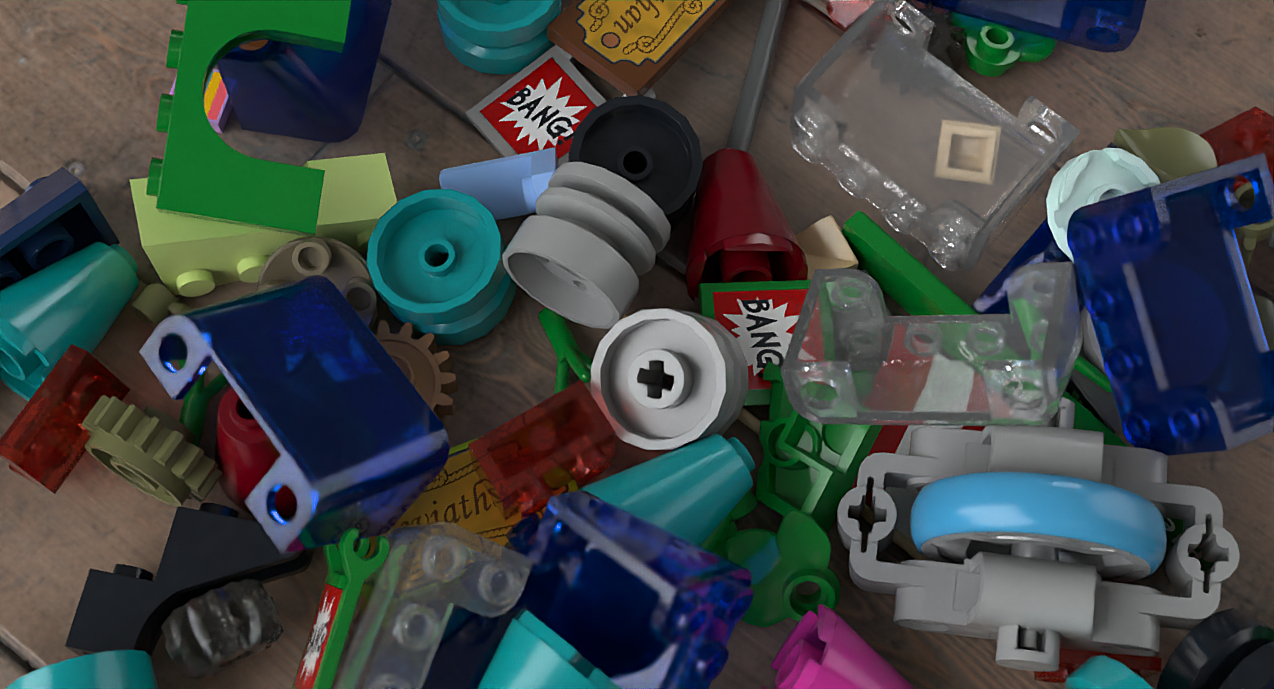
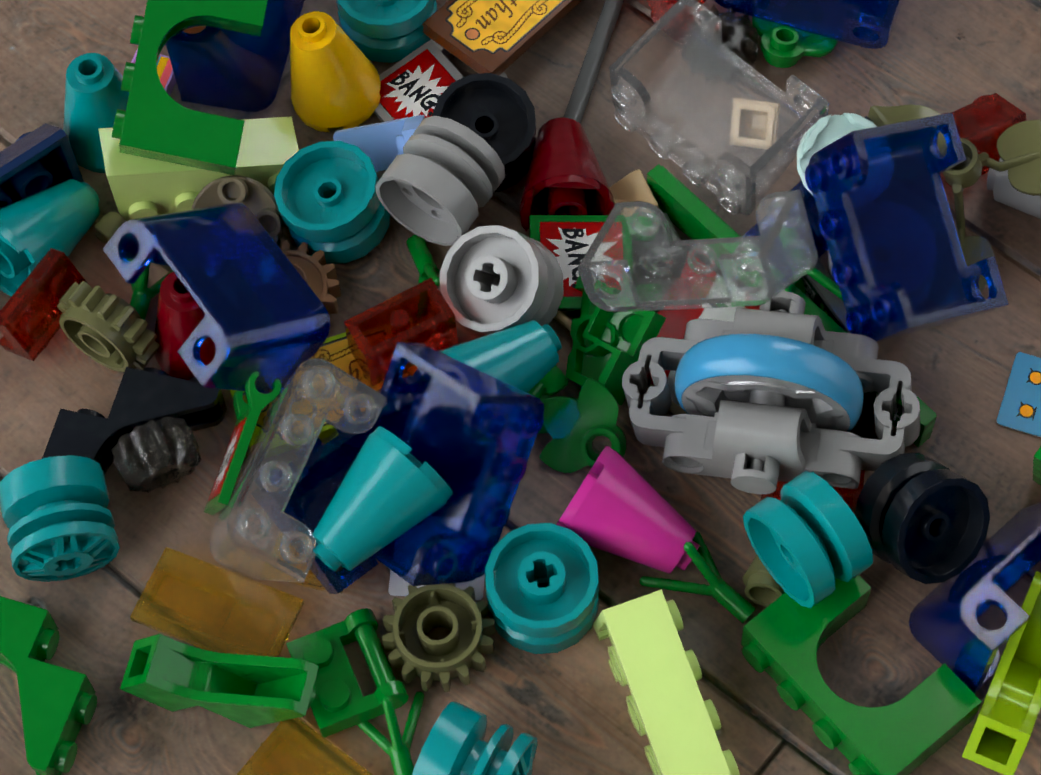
camera: 10 degrees right, 5 degrees down
(120, 142) = (91, 103): none -> teal cone
(431, 96) = (330, 75): none -> yellow cone

